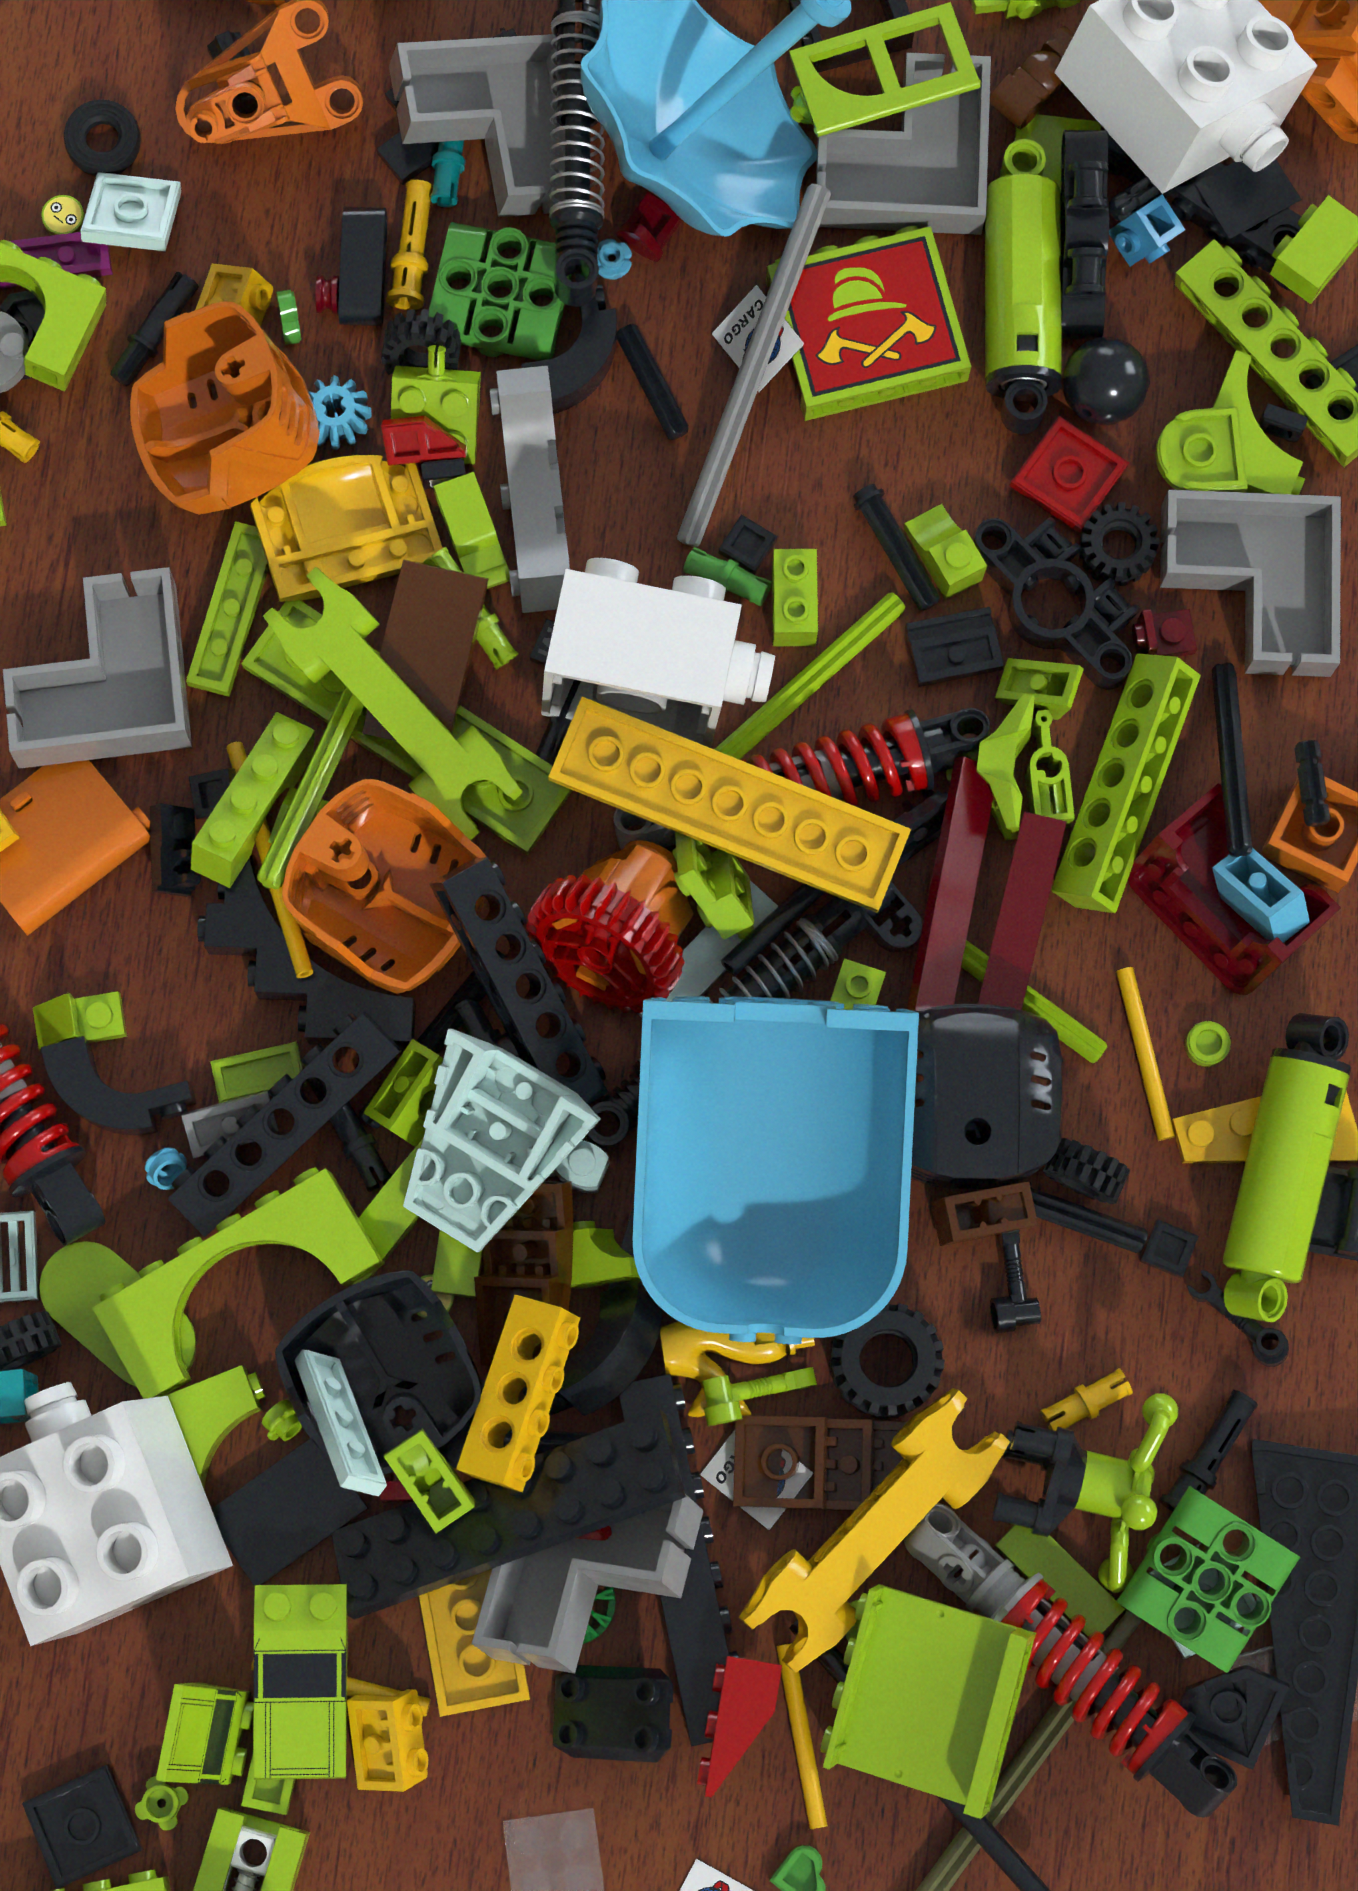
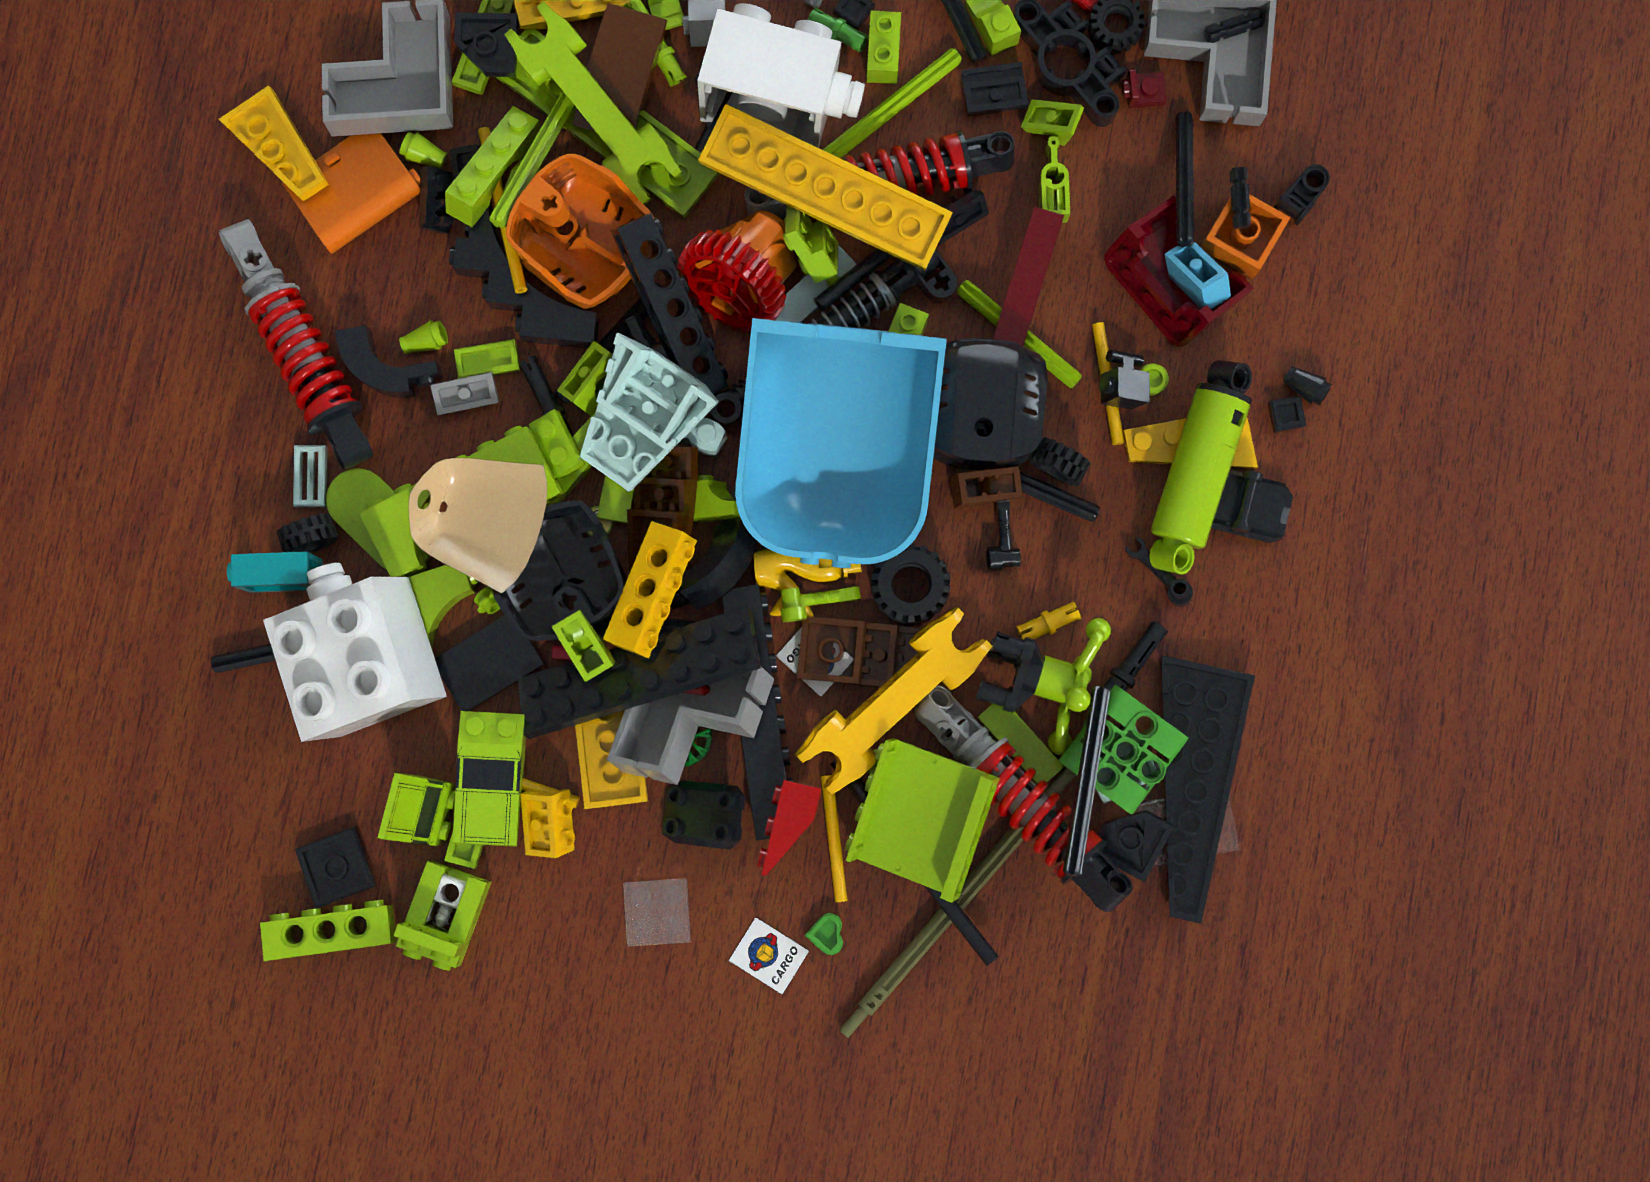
camera: 10 degrees right, 5 degrees up
(68, 1018) = (375, 313): lime slope -> none
(148, 781) = (420, 150): none -> lime cone
(149, 1808) = (381, 857): lime plate -> none
(164, 1176) = (419, 427): medium azure plate -> none
(169, 1048) = (425, 338): none -> lime cone
(208, 1209) = (566, 349): black brick -> none
(233, 625) = (484, 43): none -> black plate
(279, 1304) = (488, 520): none -> tan piece
(340, 1423) = (528, 612): light aqua tile -> none
(368, 1190) = (556, 444): none -> lime plate
(952, 888) = (981, 254): dark red tile -> none
(997, 765) = (1014, 182): lime piece -> none
(1126, 782) = (1108, 191): lime brick -> none
(1160, 1630) = (1086, 781): none -> black axle
(1168, 1055) = (1123, 385): none -> black brick
(1169, 1248) = (1114, 520): black tile -> none
(1283, 540) = (1233, 26): none -> black axle

